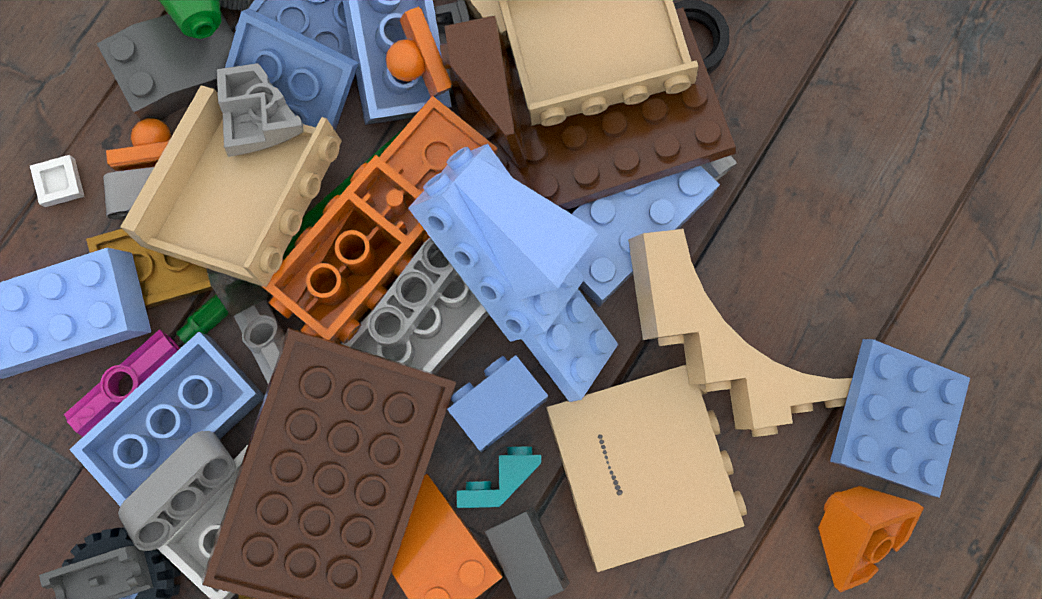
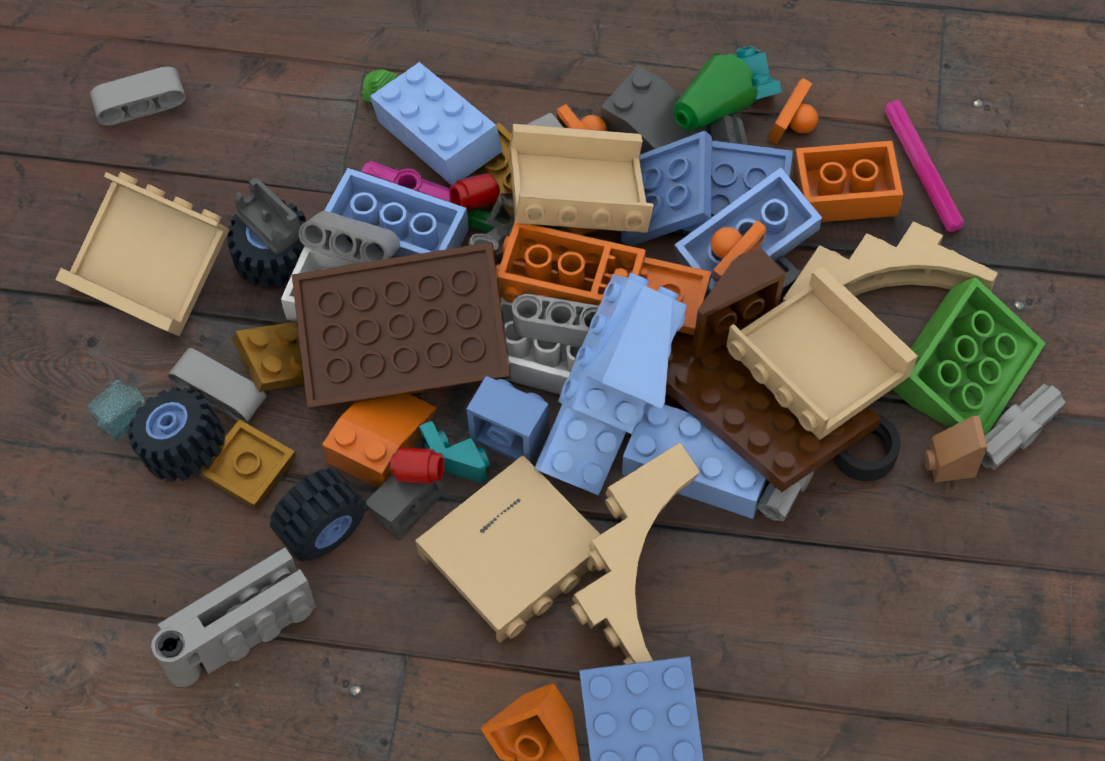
camera: 70 degrees right, 20 degrees down
(57, 181) = (531, 90): white plate -> none
(177, 311) = (475, 192): none -> red brick
(253, 111) = (639, 169): light grey slope -> none
(514, 534) = (417, 465): none -> red brick

